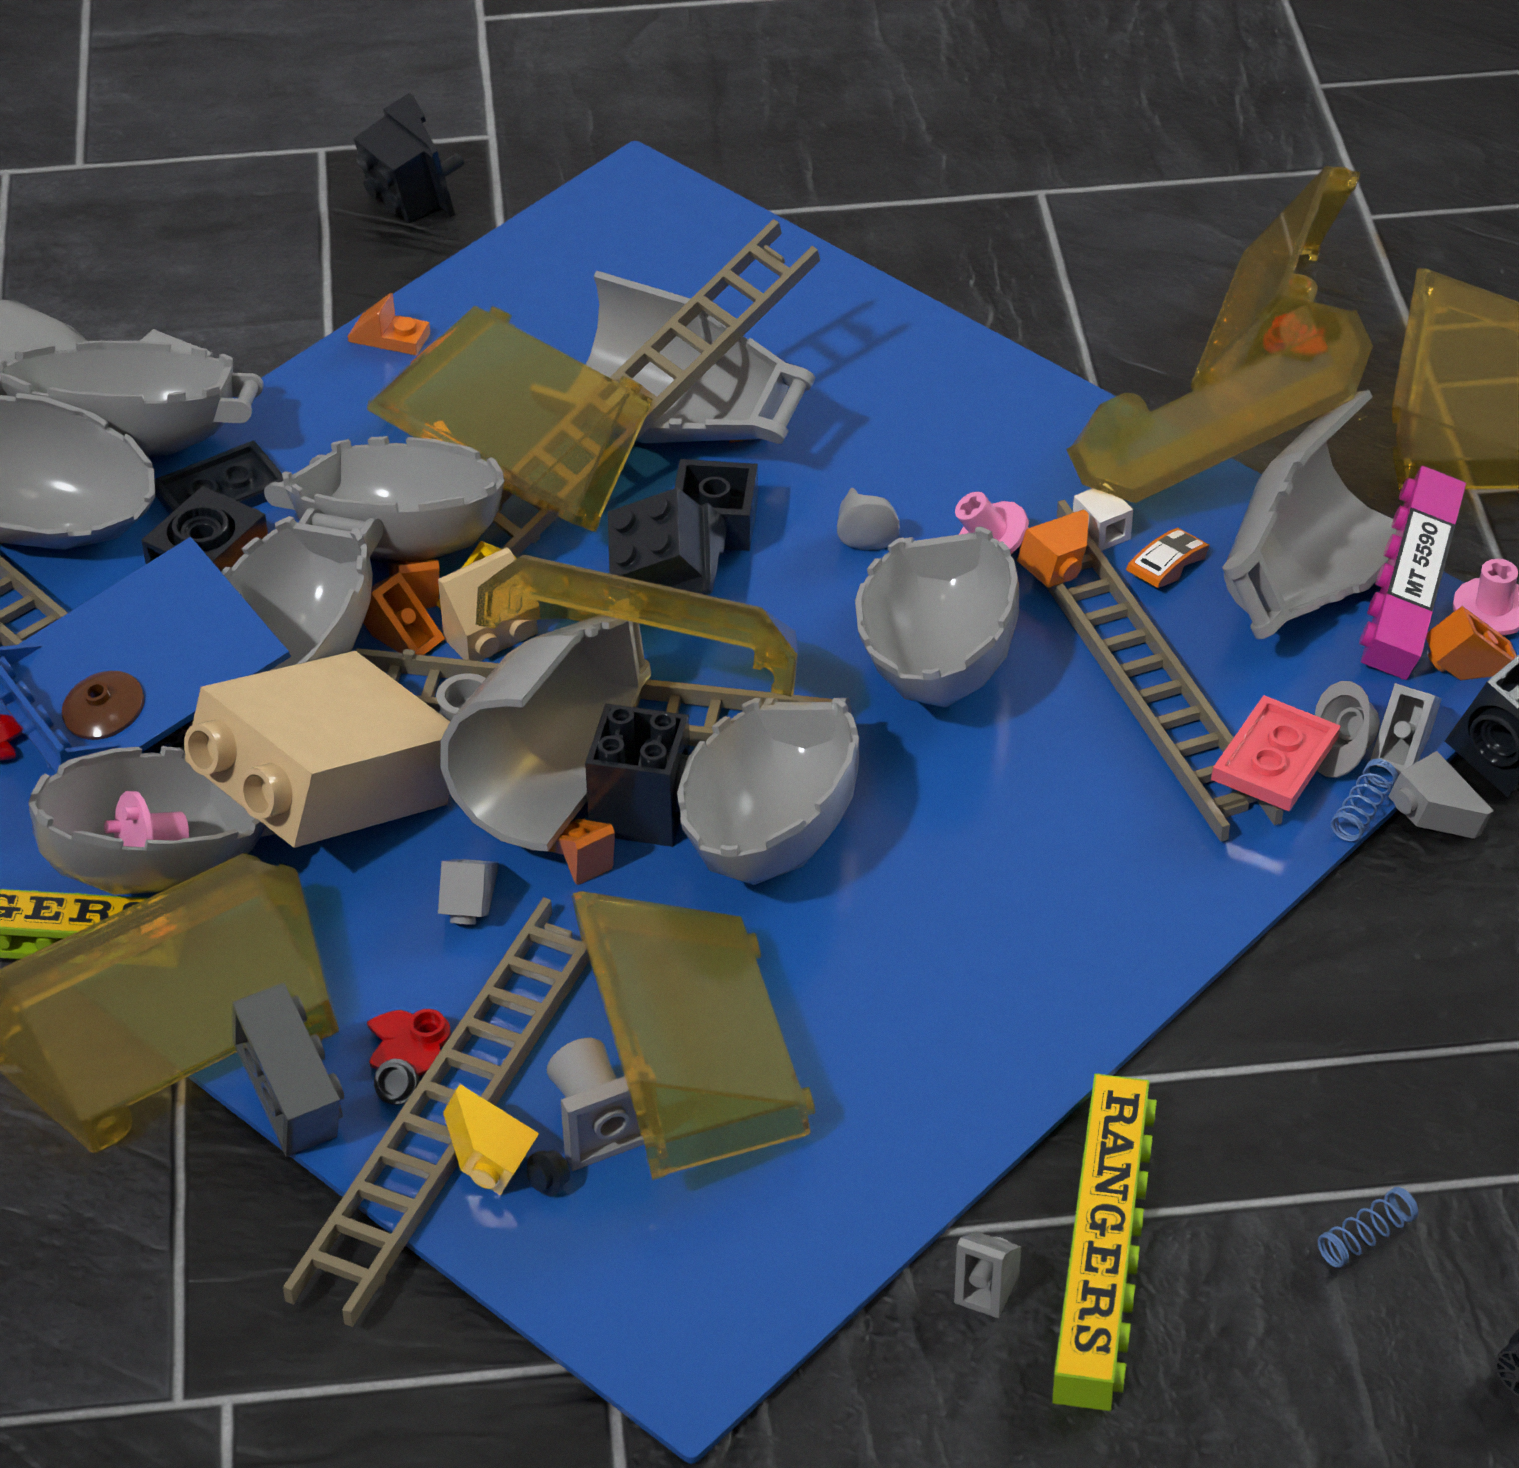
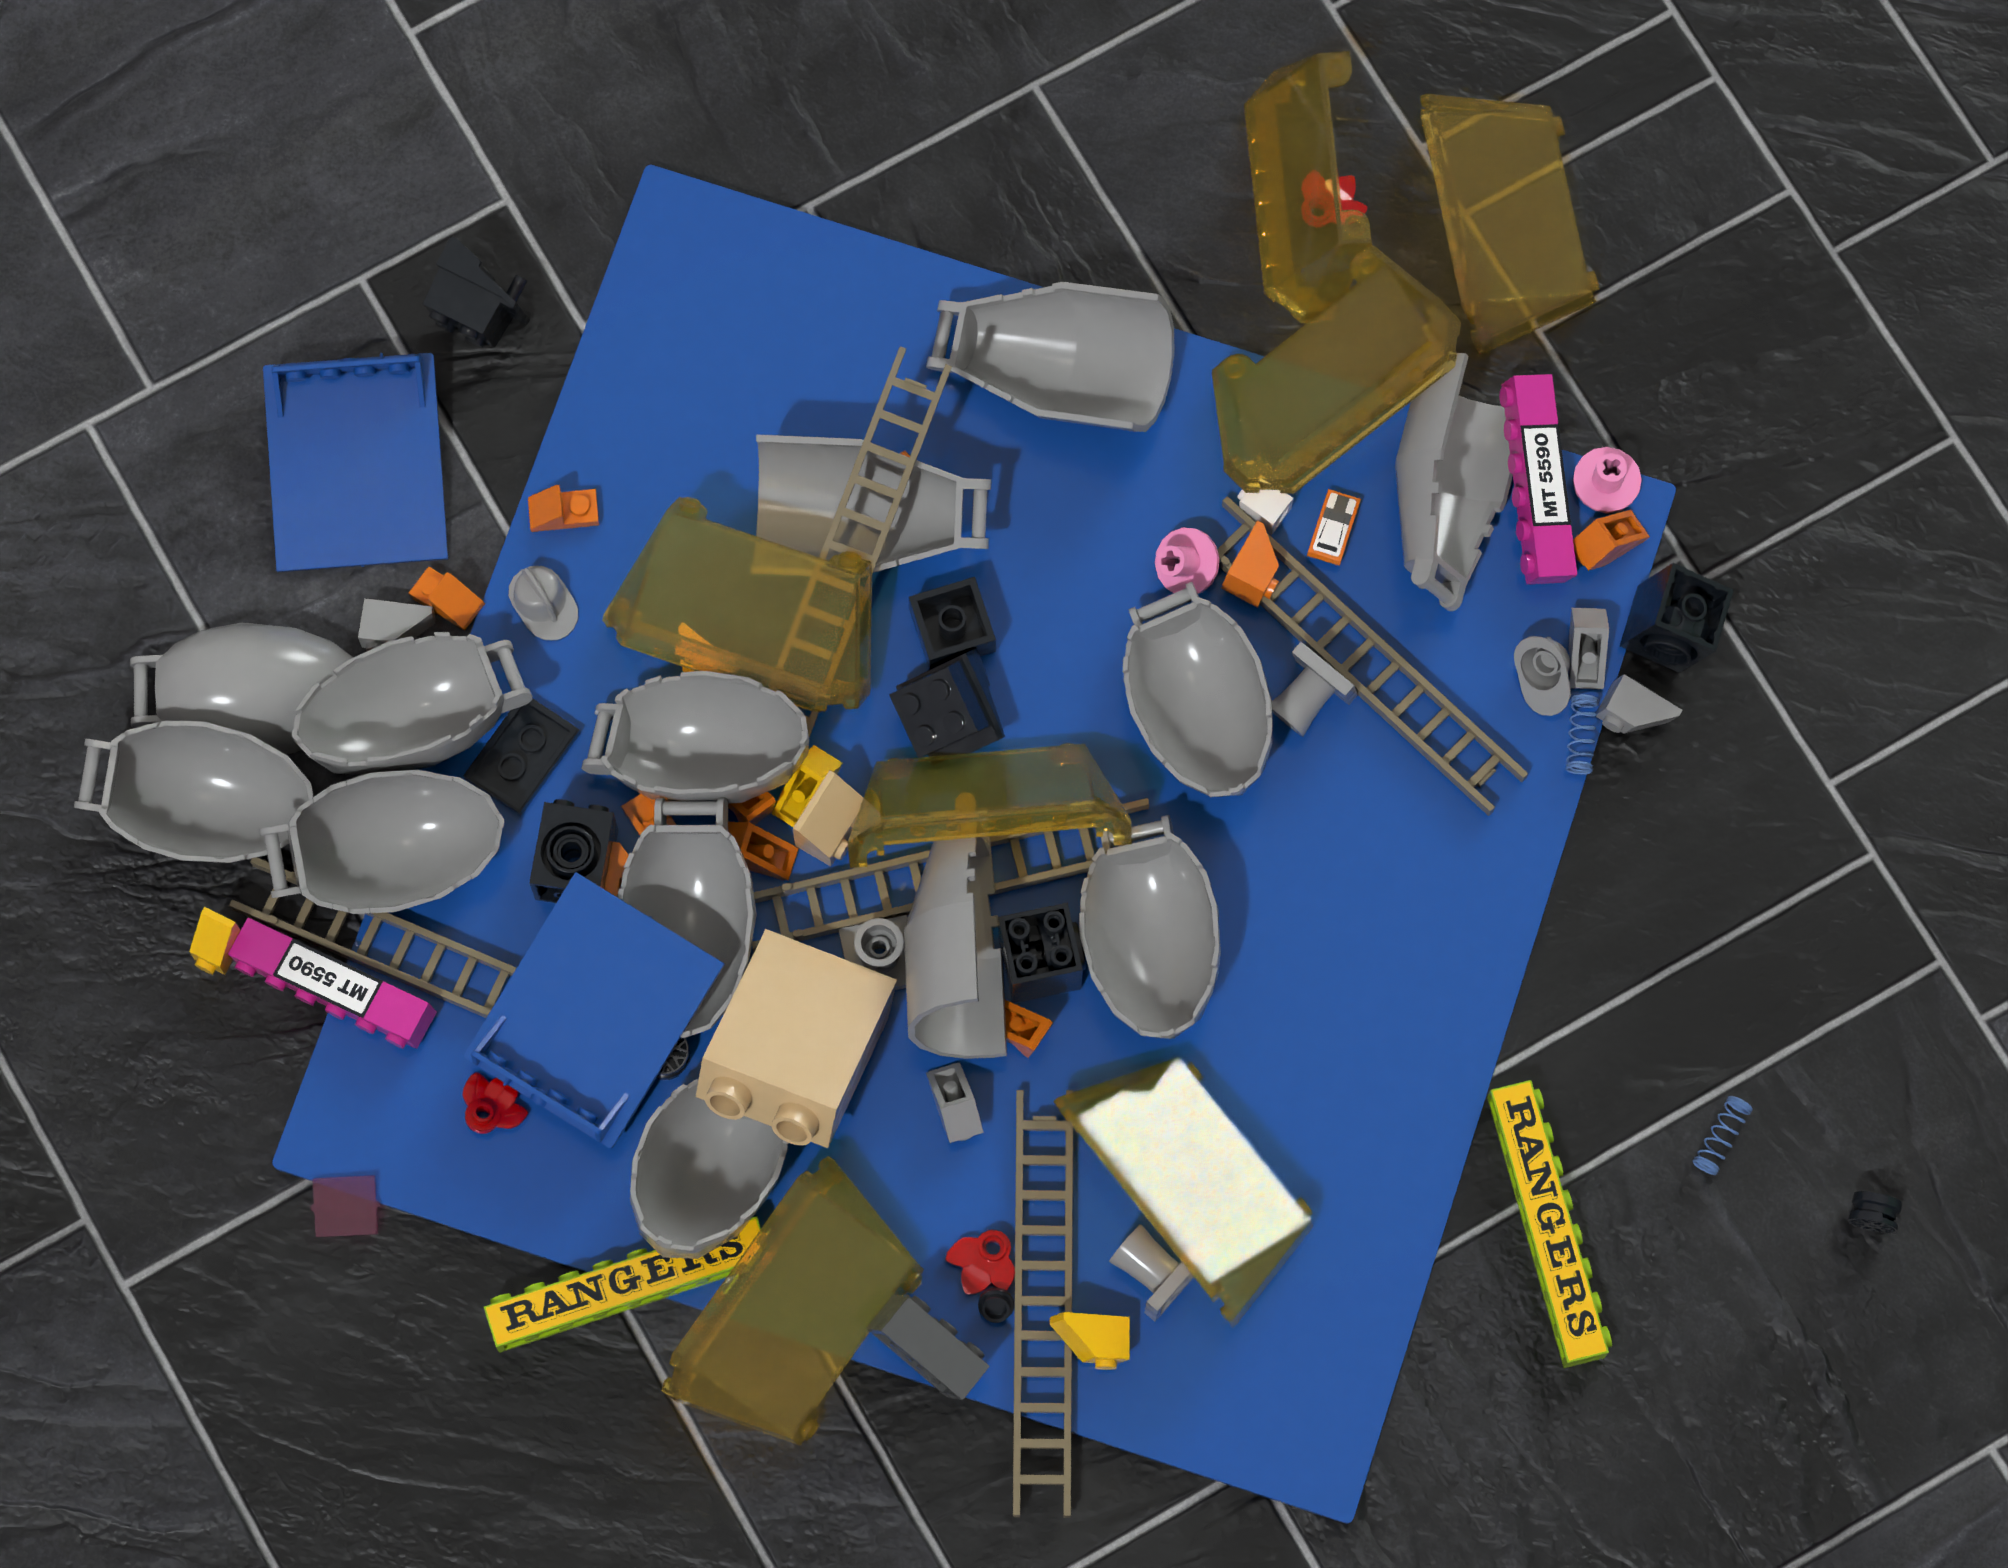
camera: 25 degrees left, 30 degrees up
(102, 705) = (611, 1061): reddish brown dish -> none
(137, 824) = (704, 1180): bright pink piece -> none
(222, 242) = (355, 462): none -> blue door
(239, 346) = (447, 597): none -> orange slope
(322, 385) = (543, 603): none -> light grey piece
(547, 1172) = (1145, 1338): black plate -> none
(867, 522) = (1081, 593): light grey hair -> none
(960, 332) = (1065, 352): none -> light grey windscreen
(985, 1272) = (1483, 1288): light grey slope -> none
(1081, 656) = (1310, 691): none -> light grey plant
(1275, 753) = (1505, 725): coral plate -> none

